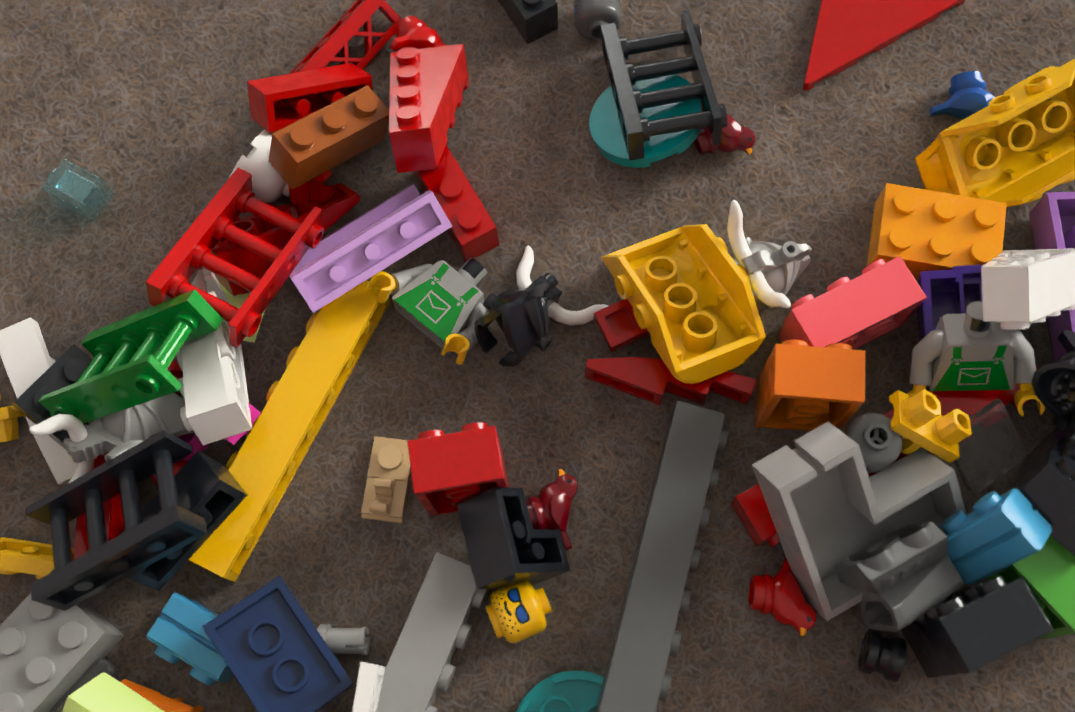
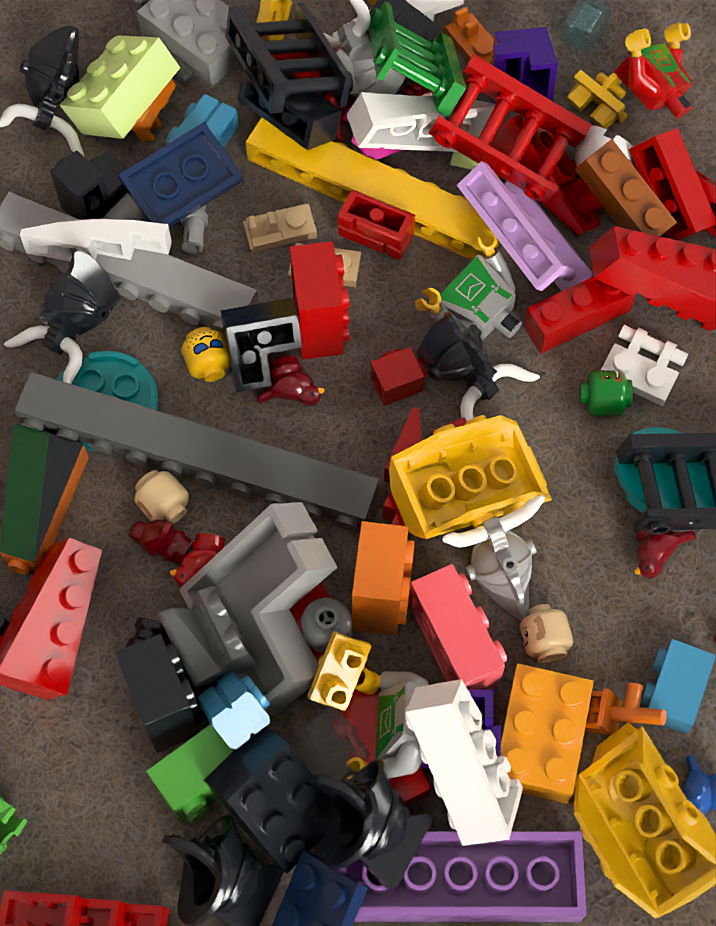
camera: 85 degrees right, 5 degrees down
(86, 314) = (470, 36): none -> orange plate
(130, 248) = (527, 58): none -> dark purple plate
(160, 114) = (656, 70): none -> red torso
(168, 188) = (609, 106): none -> yellow hips
(336, 535) = (280, 228): none -> tan plate
(344, 415) = (376, 224): none -> red brick
(523, 148) = (649, 378): none -> white plate
(537, 388) = (398, 375): none -> red brick
(554, 174) = (606, 393): none -> green head
(709, 653) = (161, 497): none -> tan head
(760, 650) = (161, 539): none -> dark red animal
(829, 234) = (546, 634): none -> tan head
(868, 116) = (679, 683): none -> dark azure brick
(904, 156) = (607, 711): none -> orange arm

